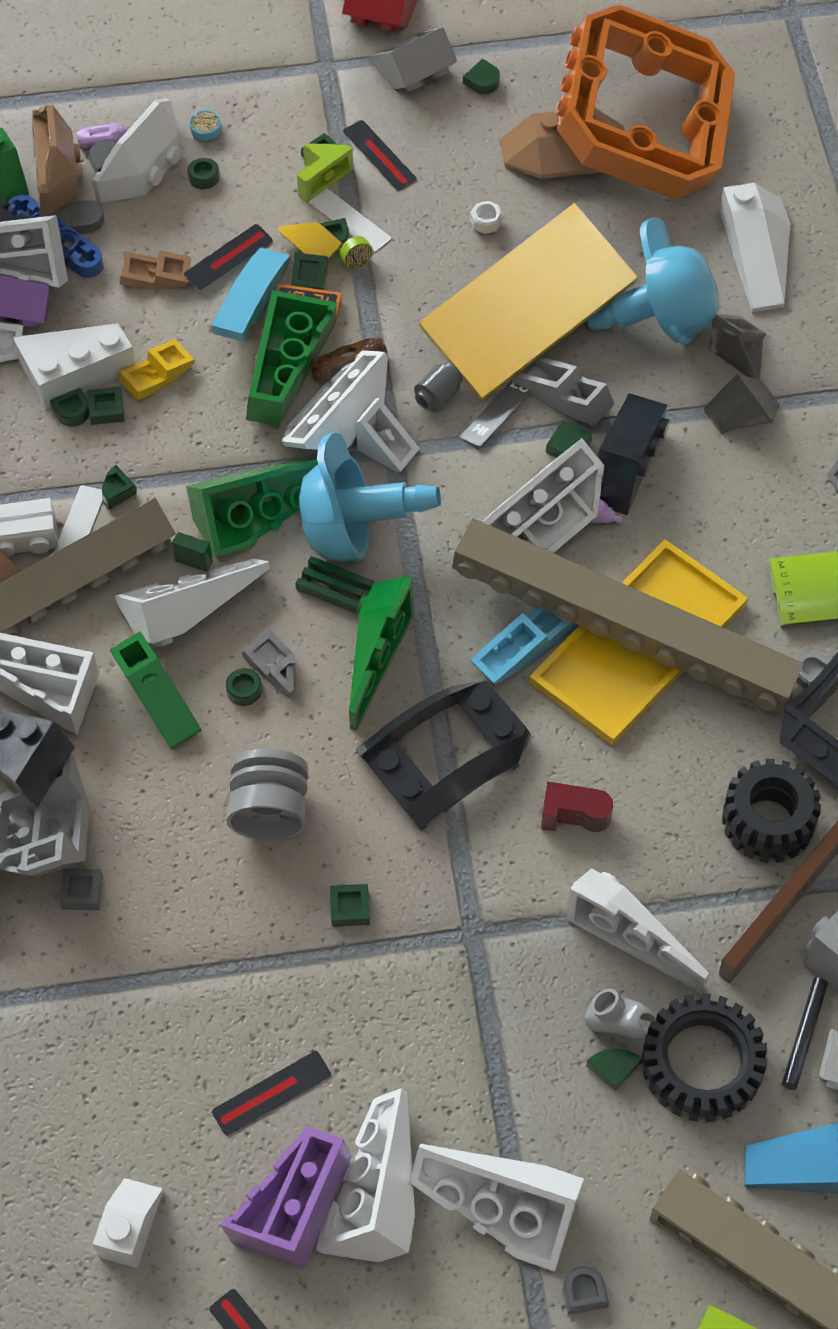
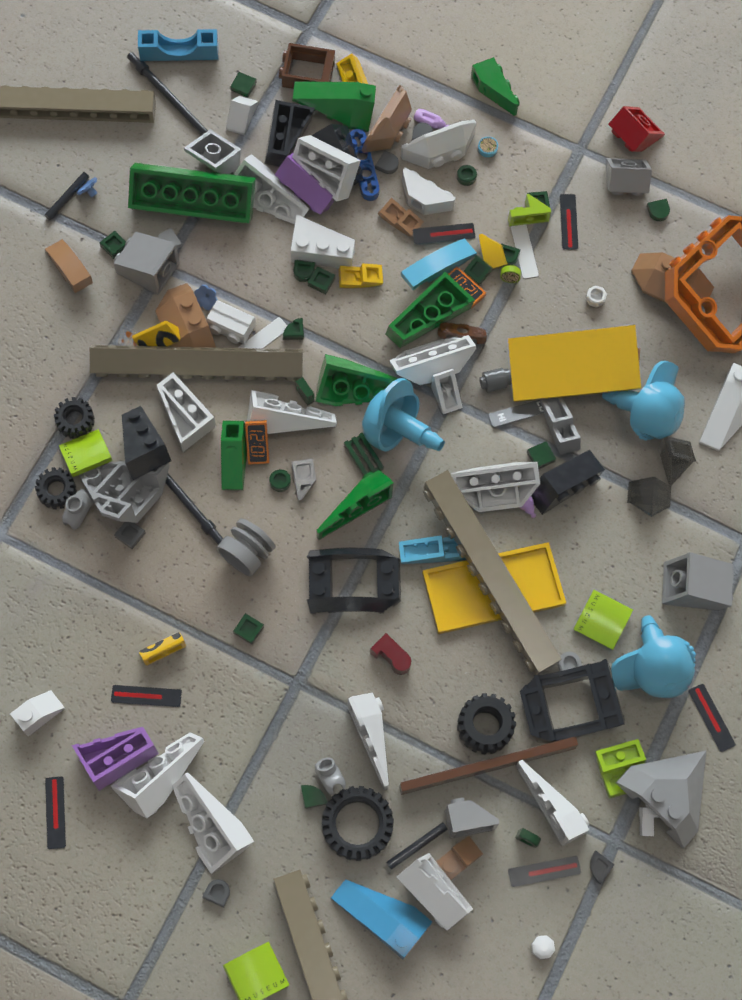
camera: 30 degrees right, 10 degrees up
(156, 49) = (491, 82): none -> green slope
(167, 224) = (425, 195): none -> white slope
(176, 653) = (257, 442): none -> tile
(187, 808) = (206, 525): none -> black bar
(247, 1011) = (162, 648): none -> yellow slope

